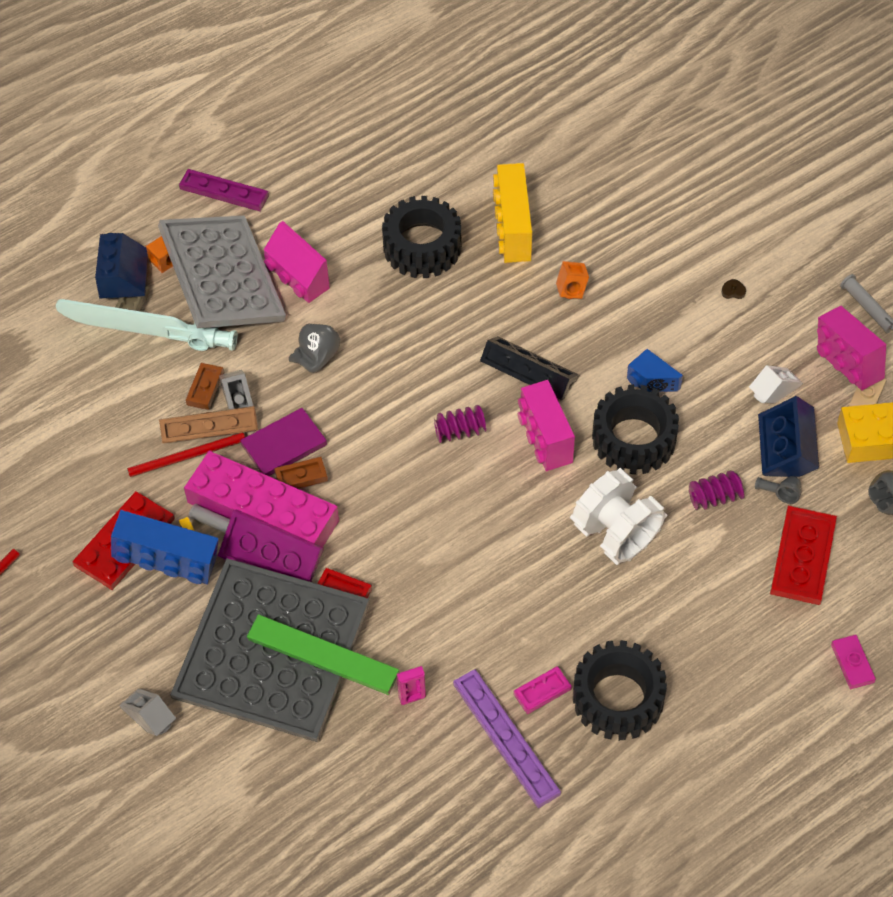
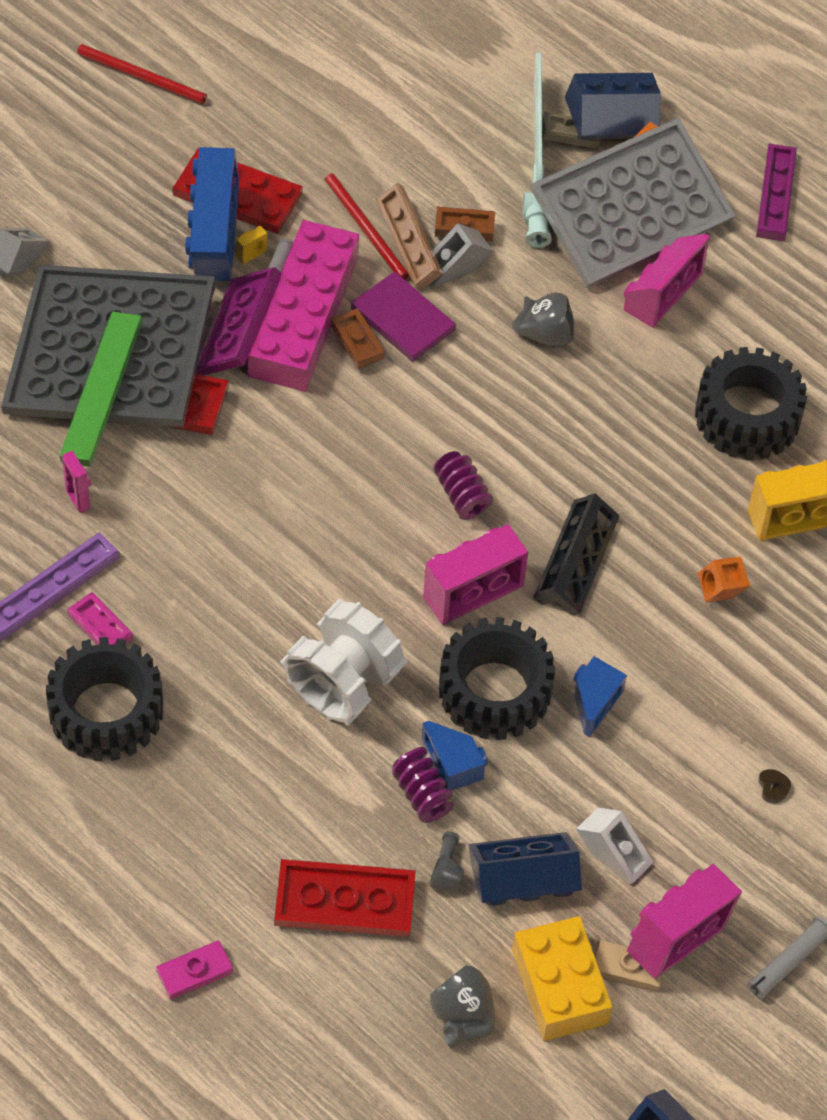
camera: 75 degrees right, 0 degrees up
(693, 465) = (454, 755): none -> blue slope

